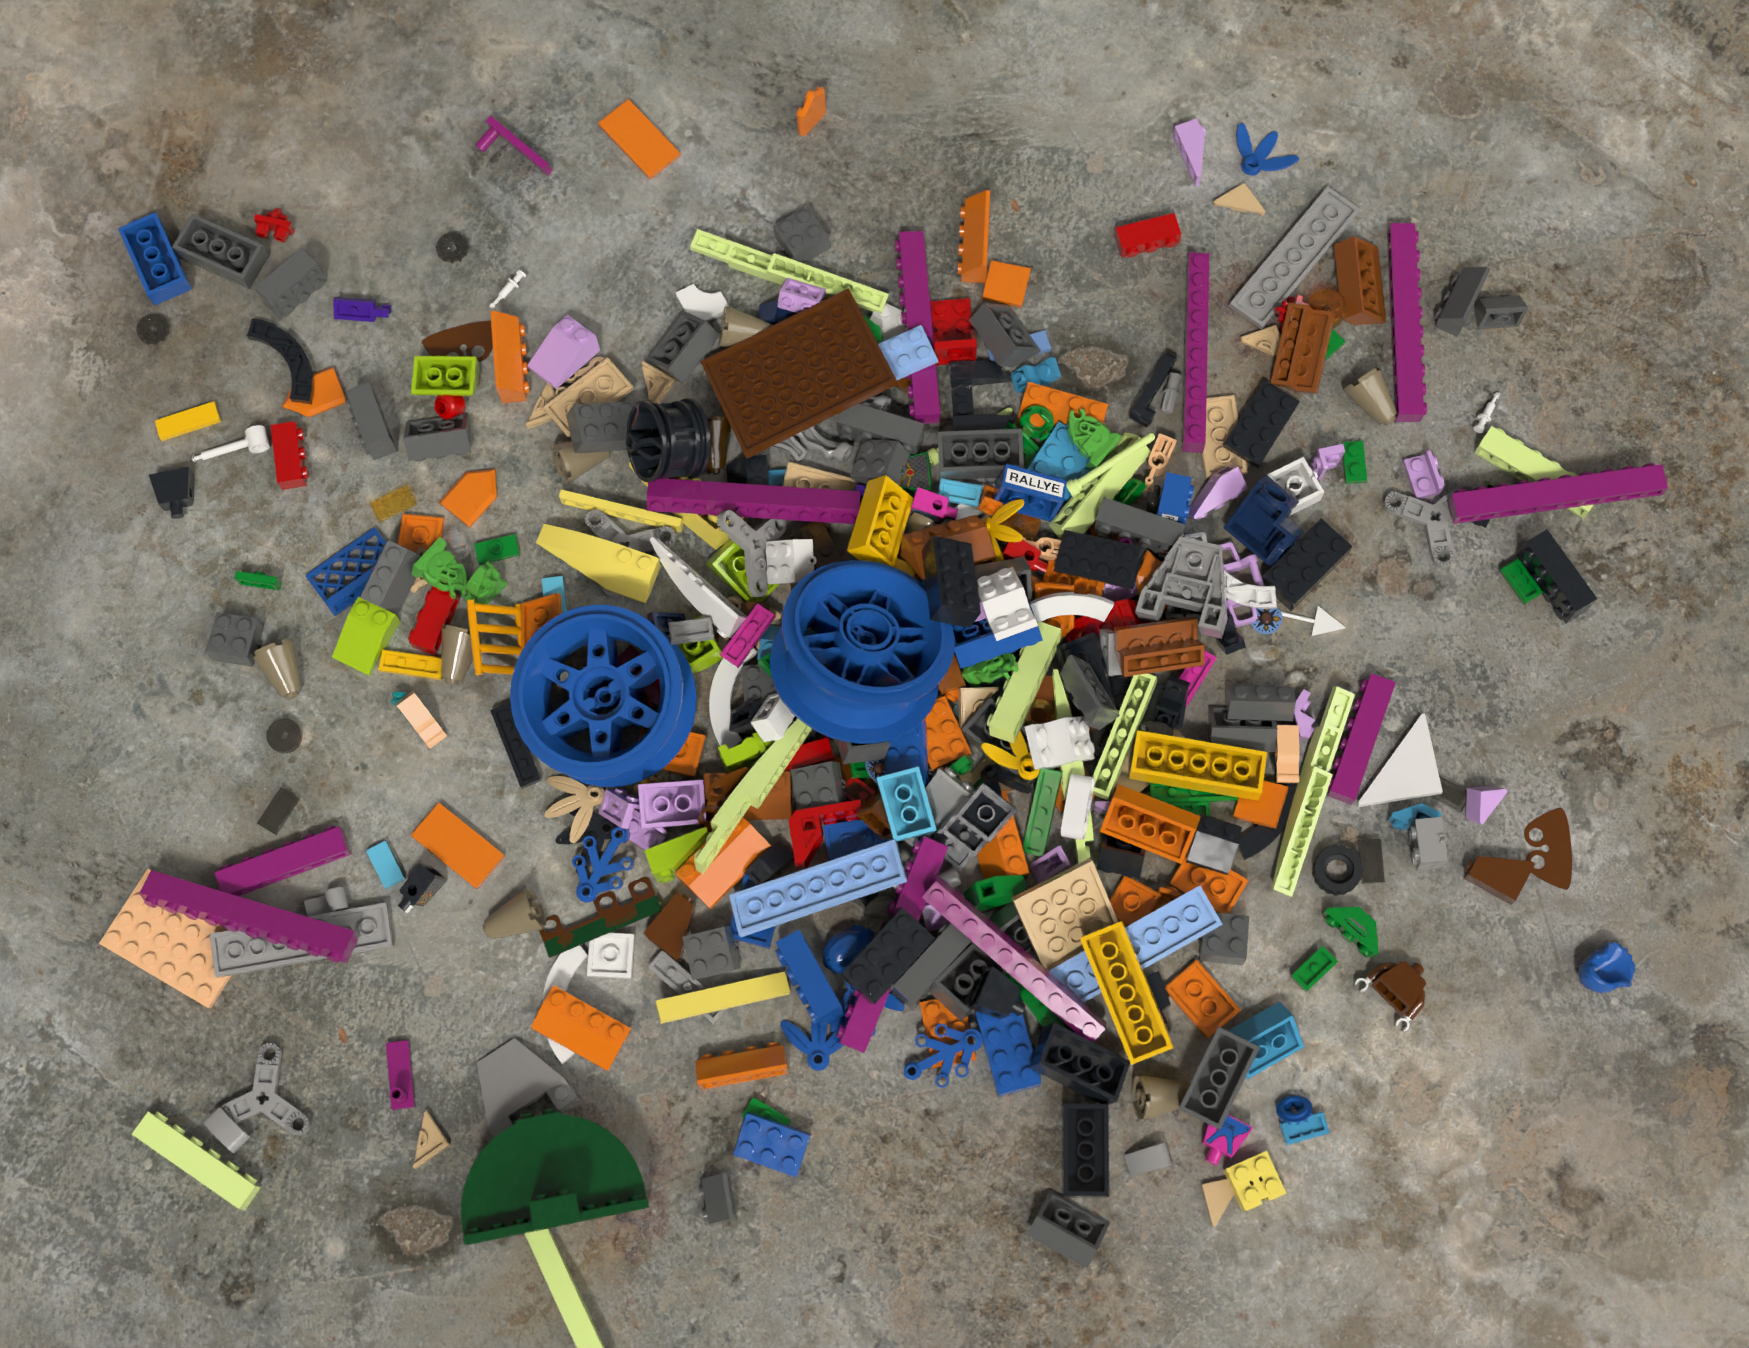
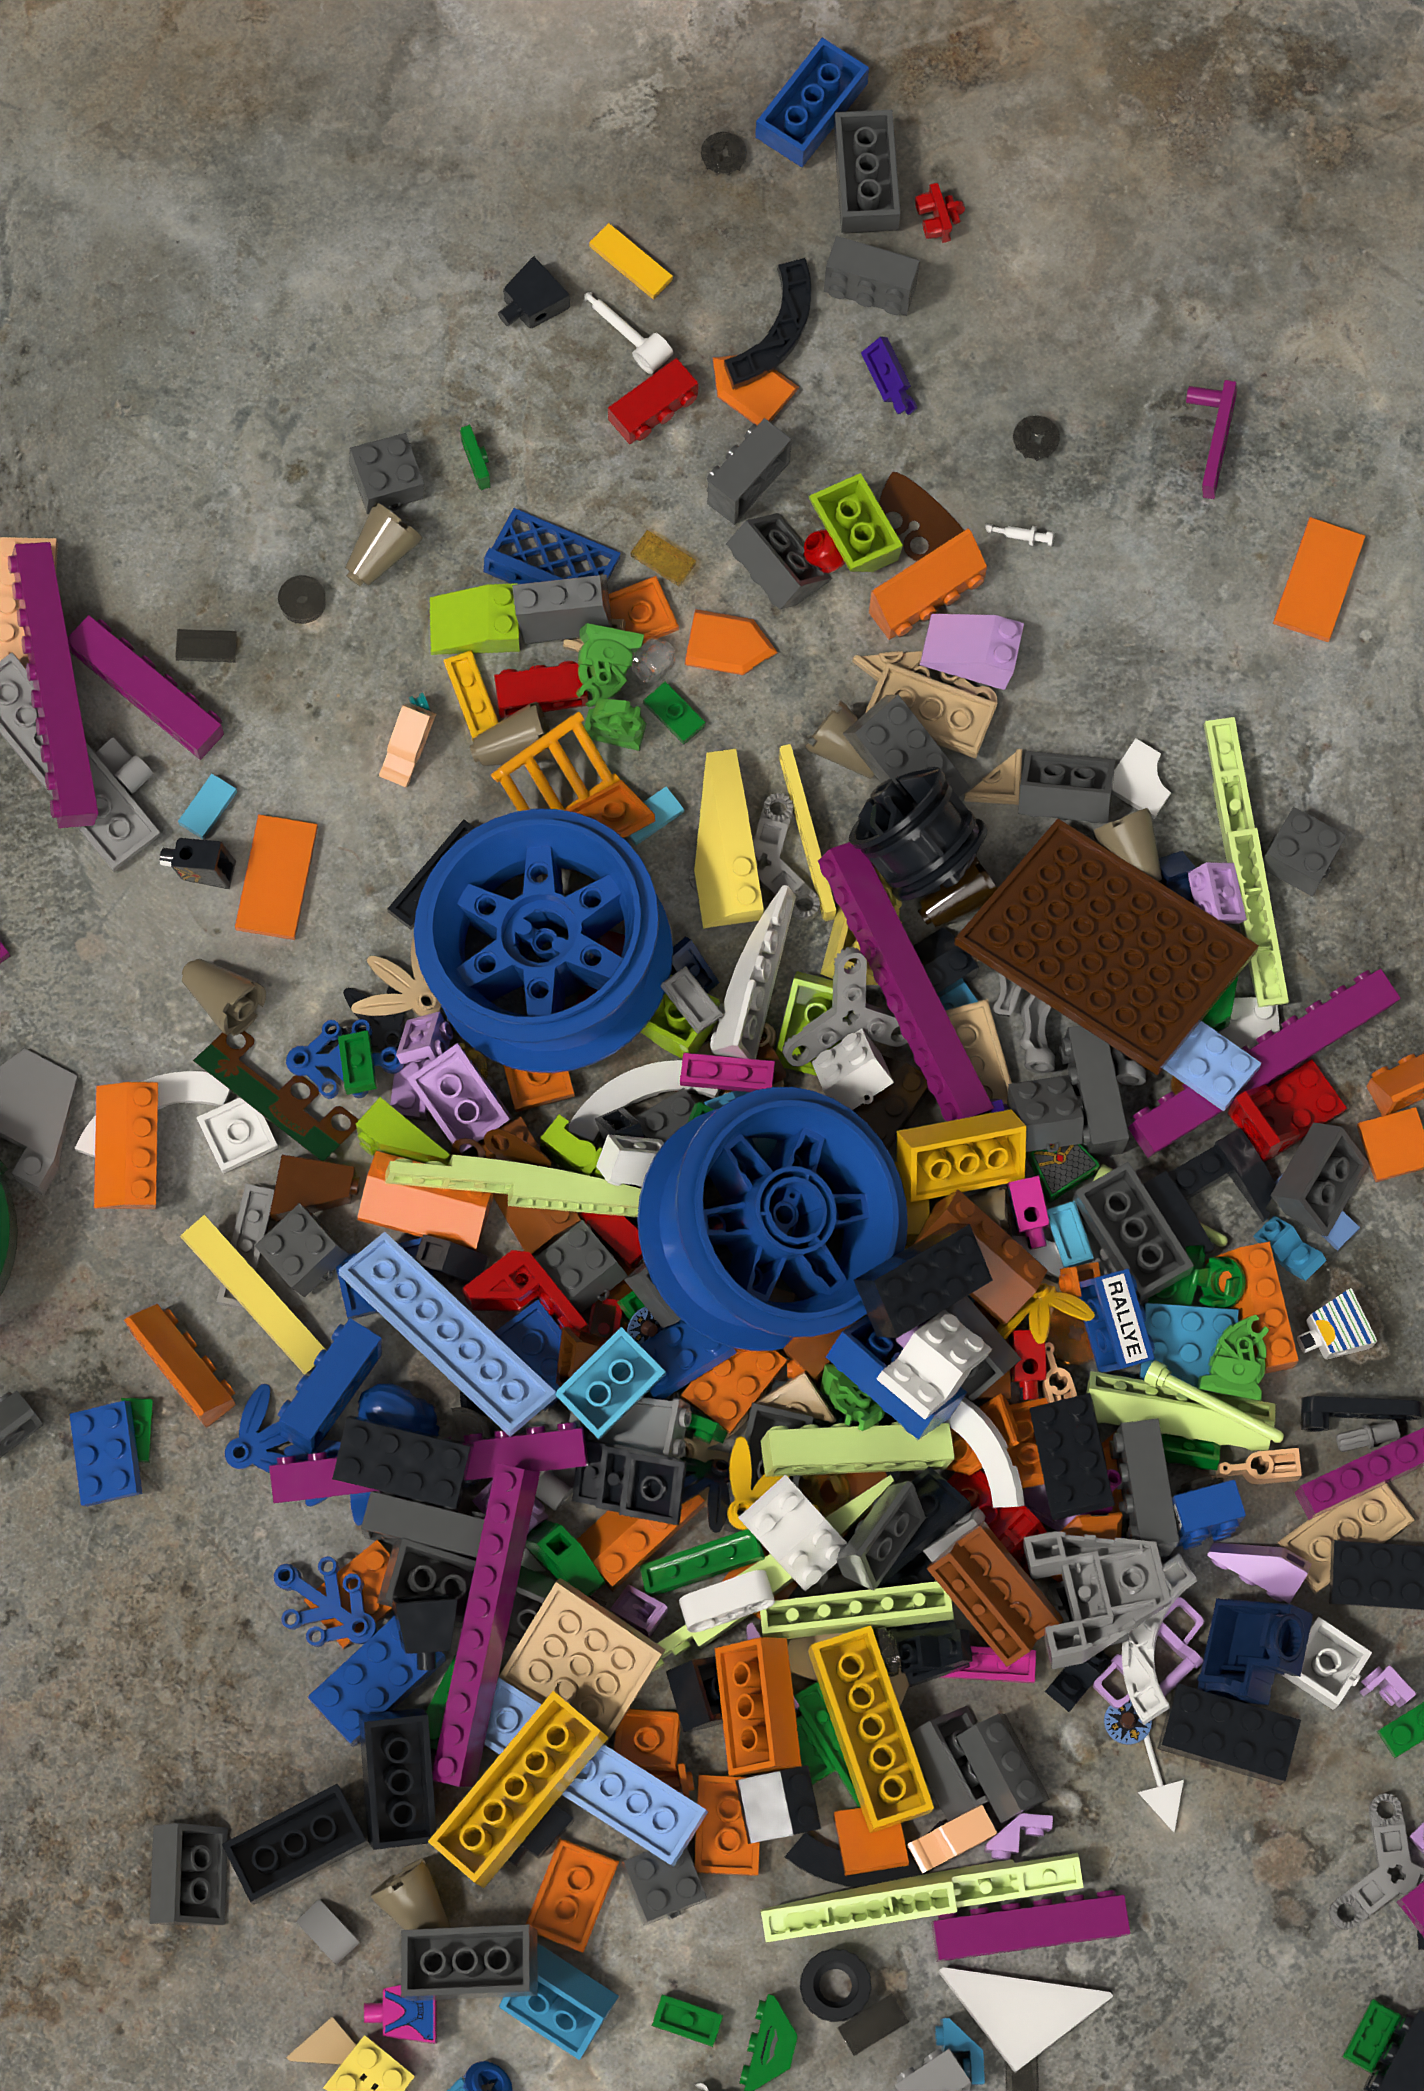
camera: 55 degrees right, 0 degrees up
(611, 854) = (357, 1062): none -> green plate
(1098, 373) = (1338, 1328): none -> torso

